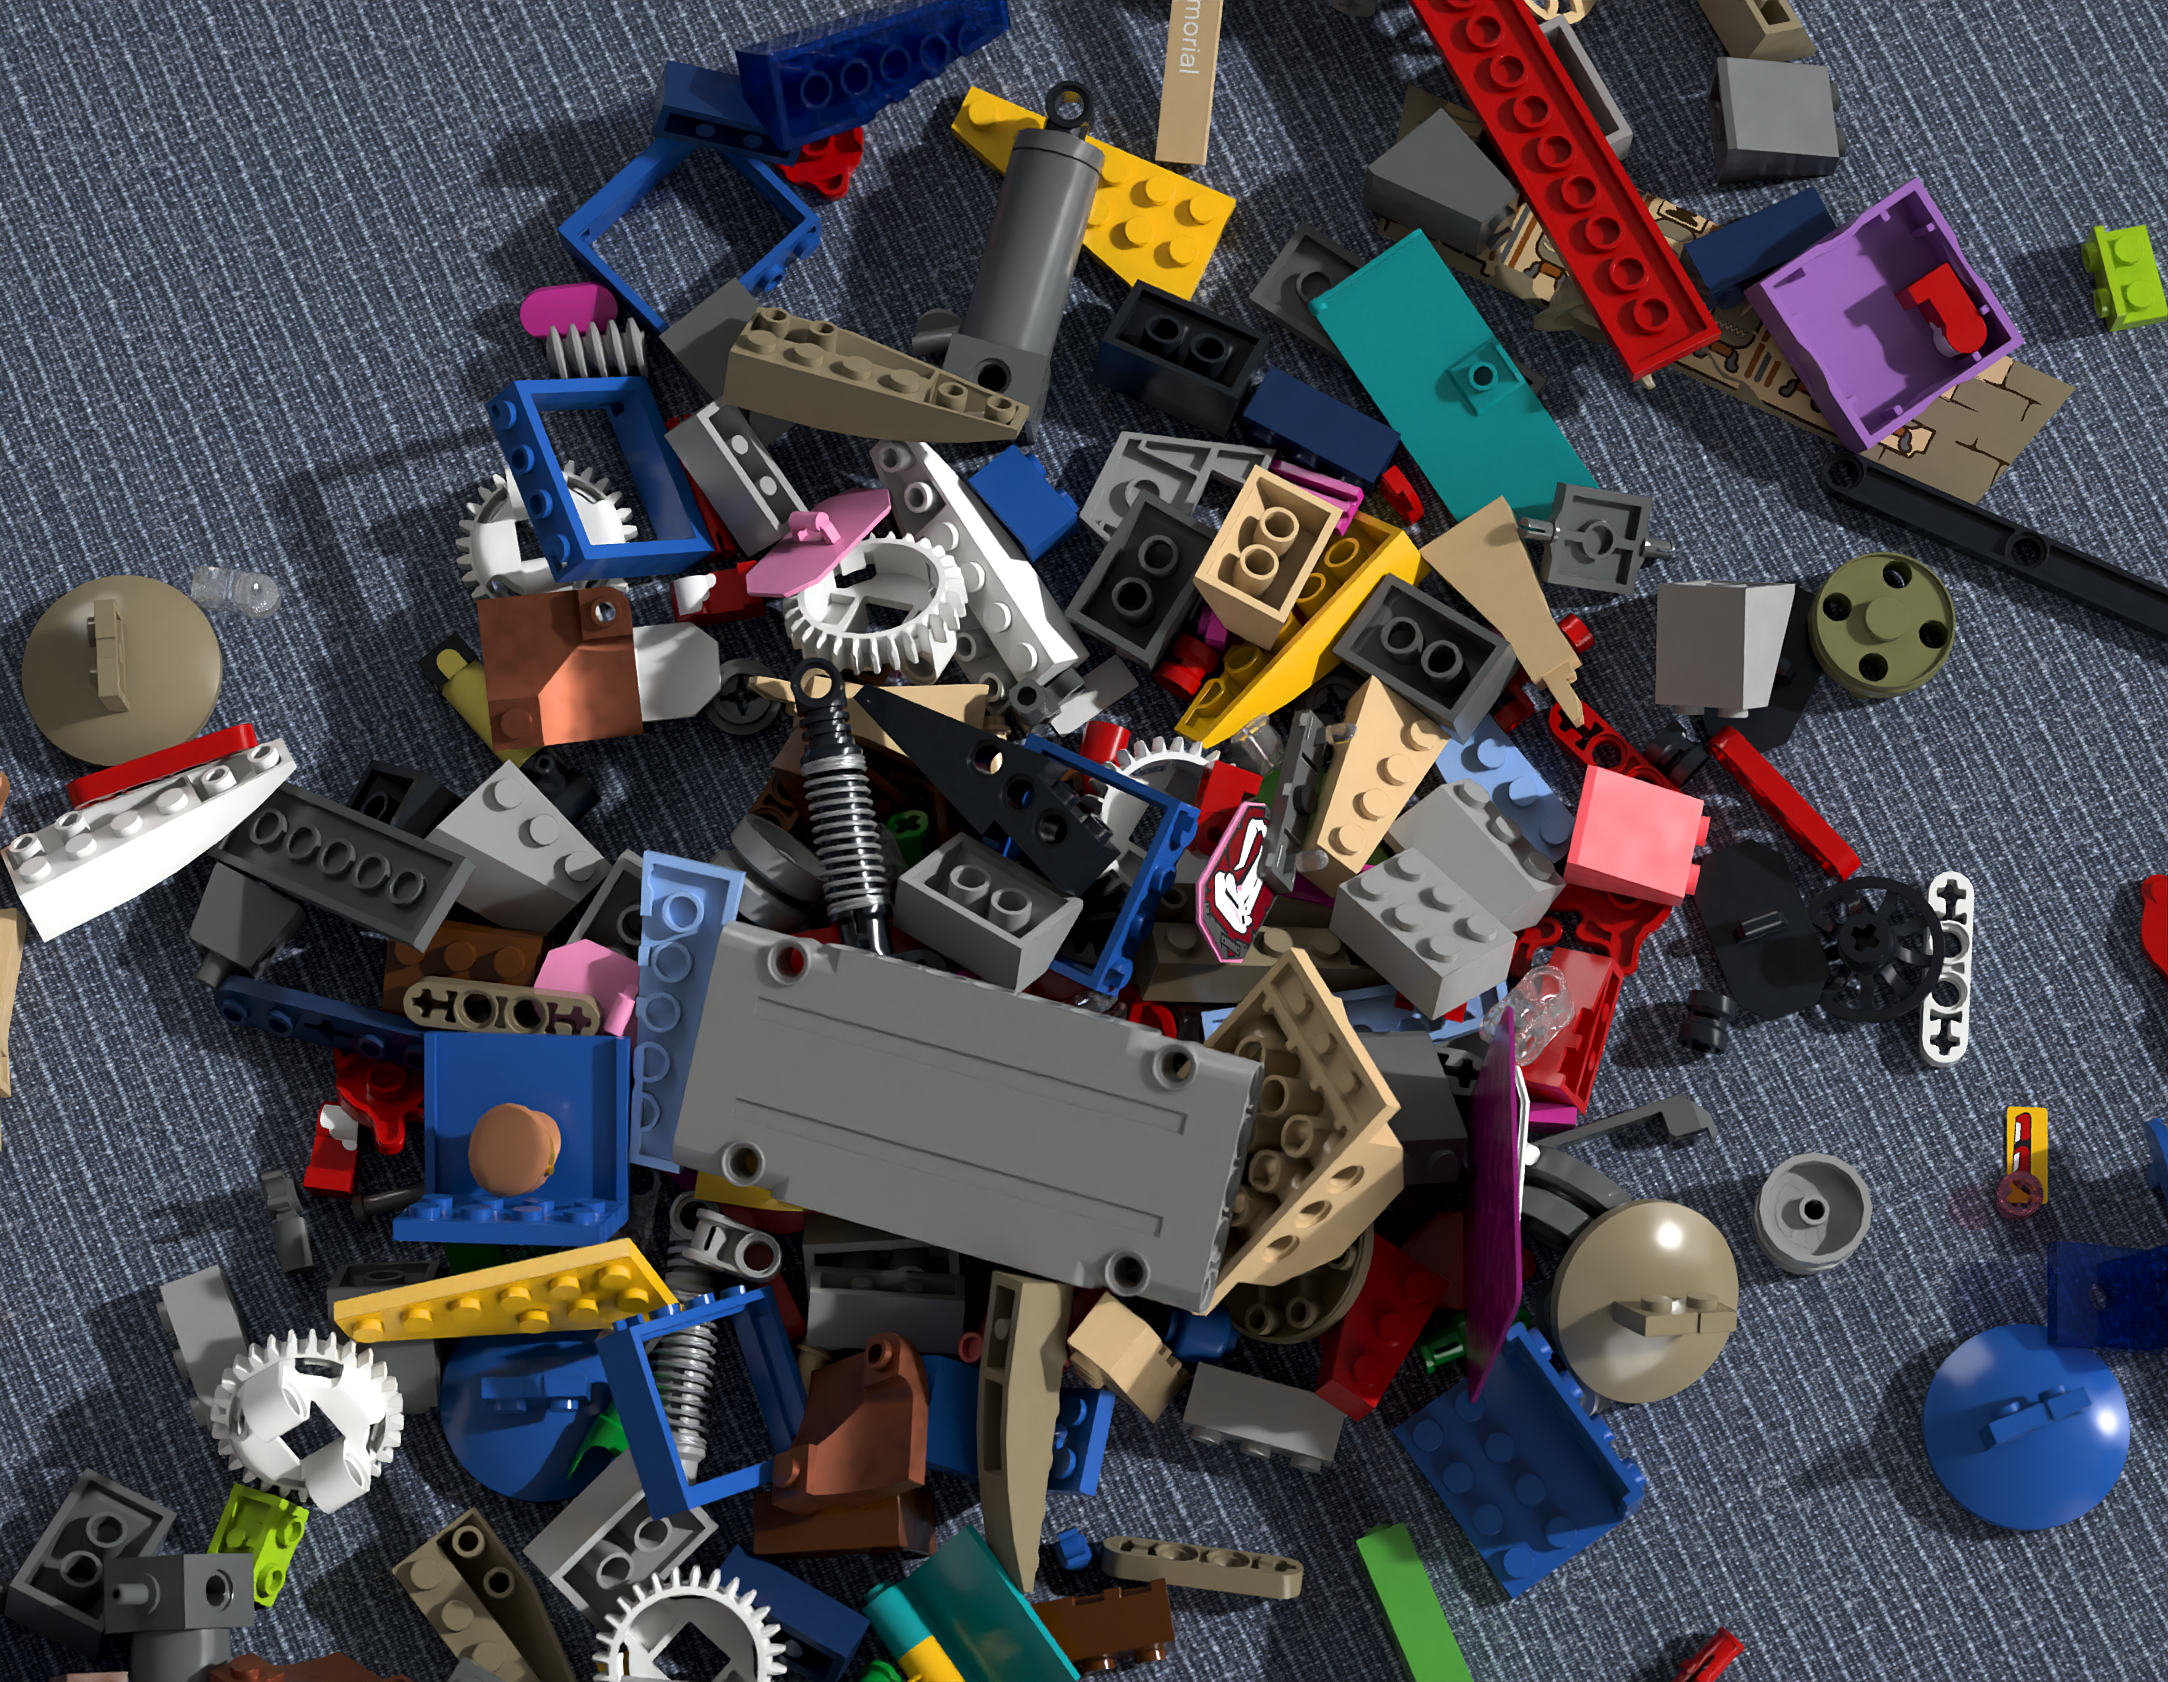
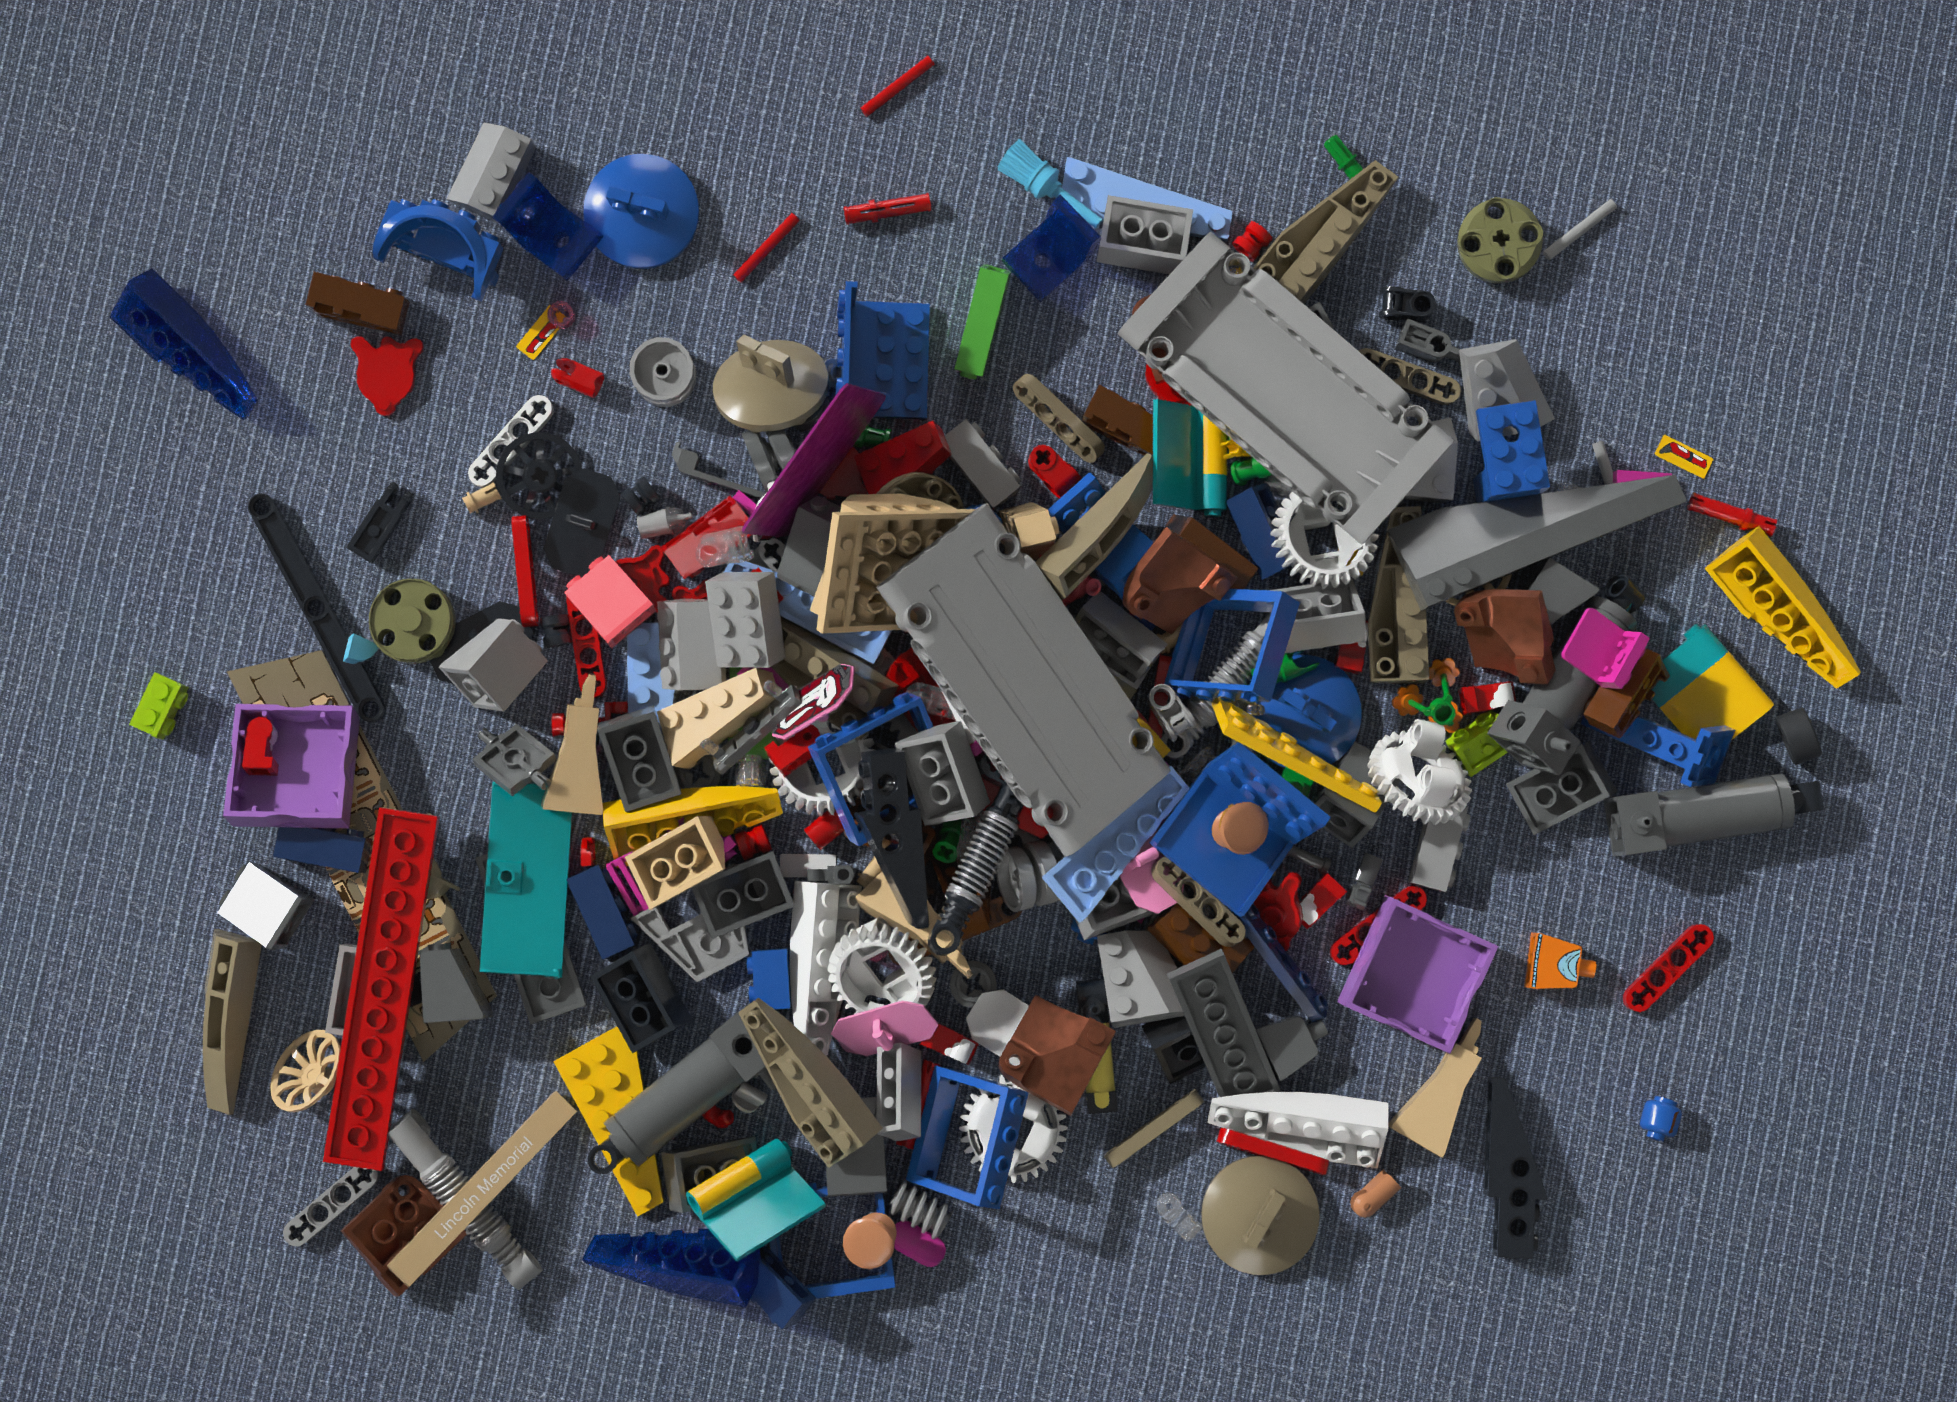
camera: 150 degrees left, 10 degrees up
(122, 1144) = (1417, 974): none -> medium lavender tile
(218, 1178) = (1344, 941): none -> red beam
(289, 1616) = (1485, 697): none -> red leg
(335, 1543) = (1441, 709): none -> orange plant
(351, 682) = (1153, 1128): none -> dark tan beam
(522, 1525) = (1351, 656): none -> red leg
(633, 260) = (870, 1240): none -> nougat piece
(826, 201) = (754, 1200): none -> teal door
(912, 205) = (694, 1164): none -> dark grey slope
(956, 284) = (719, 1117): none -> red arm
(1072, 1551) = (1112, 465): blue bar -> none
(1144, 1481) = (1057, 475): none -> red piece
(1648, 1007) = (662, 522): none -> light grey piece
(1808, 1509) = (766, 247): none -> red piece
(1916, 1124) = (582, 378): none -> red piece
(1922, 534) = (359, 649): none -> medium azure tile
(1924, 859) = (481, 498): none -> tan pin
(2032, 723) = (379, 524): none -> black hinge

